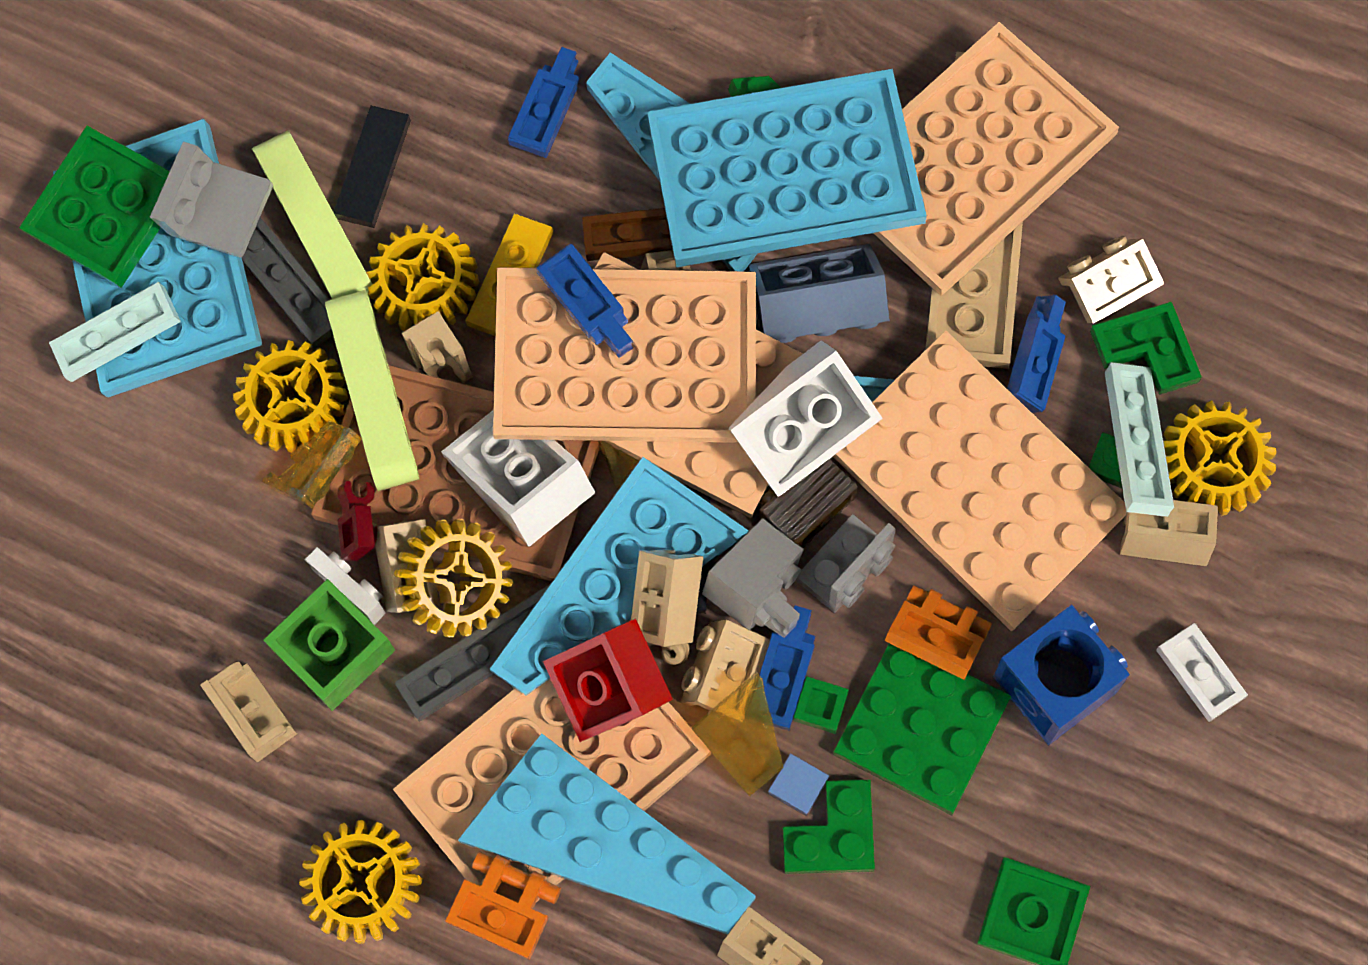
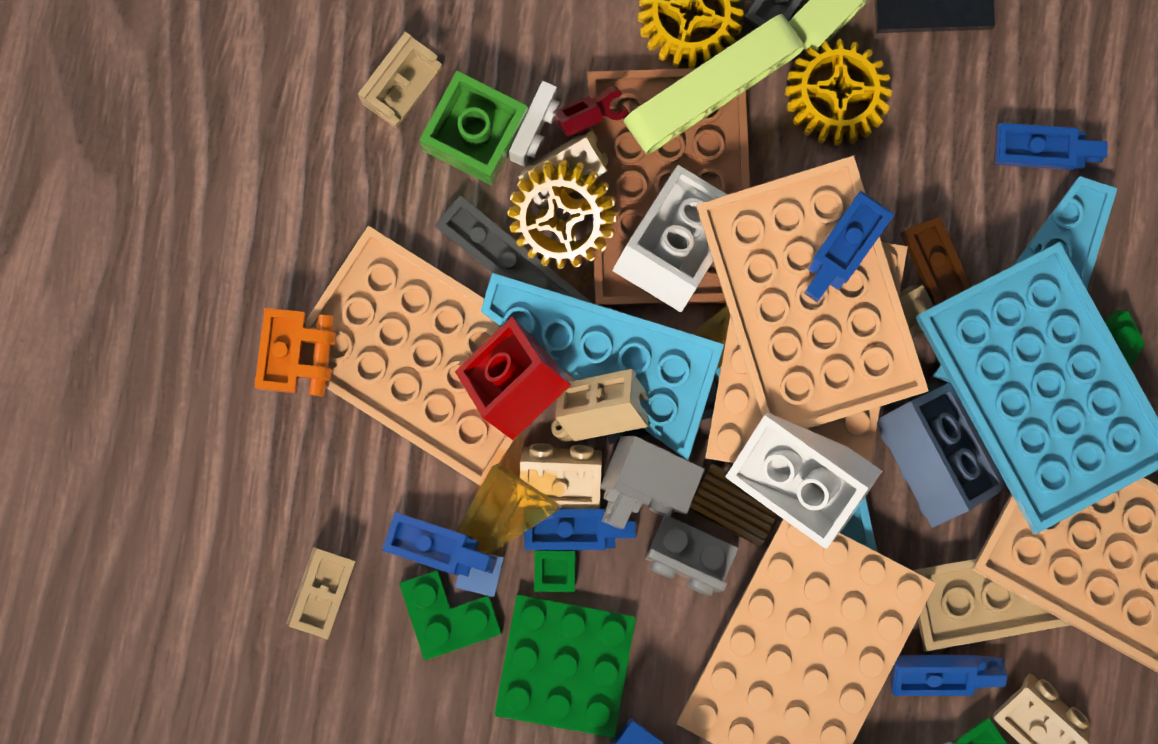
camera: 65 degrees right, 10 degrees up
(315, 464) = (630, 59): clear yellow wing -> none
(342, 893) = (291, 210): yellow gear -> none
(436, 347) = (773, 124): tan hinge -> none
(520, 248) = (879, 168): yellow plate -> none
(587, 832) = (378, 403): medium azure wing -> none
(758, 819) = (435, 546): none -> blue hinge
(935, 639) = (642, 657): orange plate -> none

